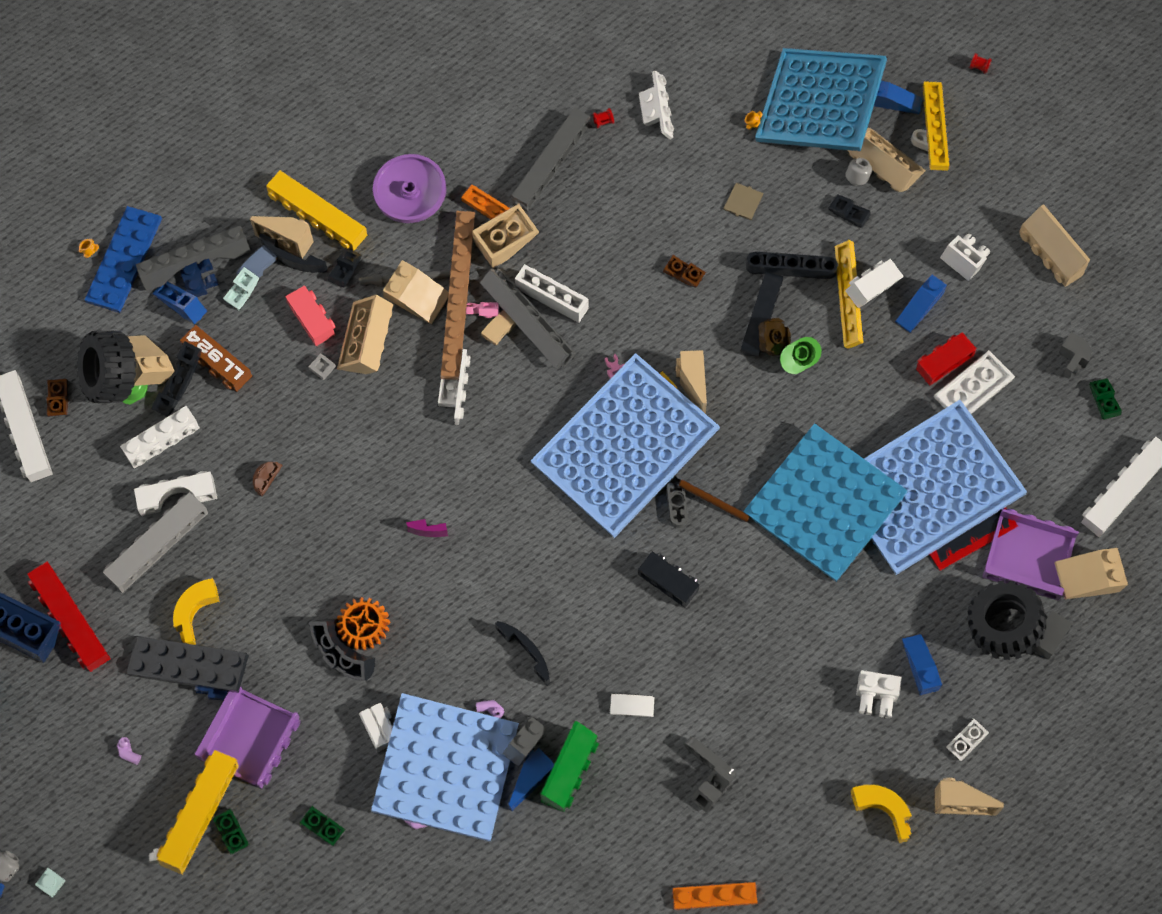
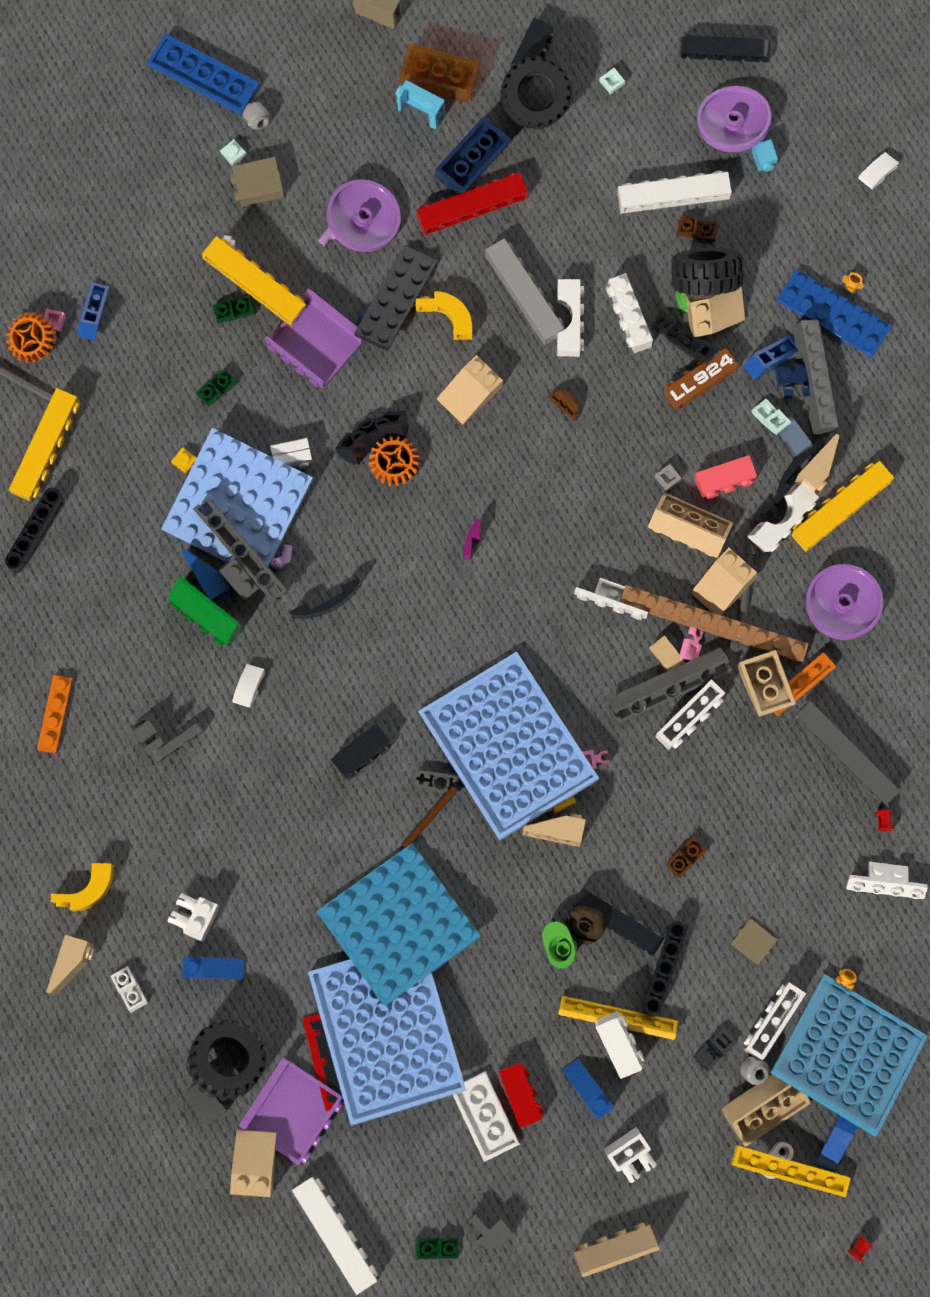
camera: 105 degrees right, 10 degrees up
(81, 844) = (257, 182): none -> dark tan brick
(101, 720) = (363, 215): none -> medium lavender dish
(271, 568) = (470, 390): none -> tan slope
(323, 244) = (799, 500): none -> white arch
(410, 838) = (184, 460): none -> yellow plate
(487, 755) = (250, 559): none -> dark grey piece
(810, 165) = (774, 1021): none -> white brick

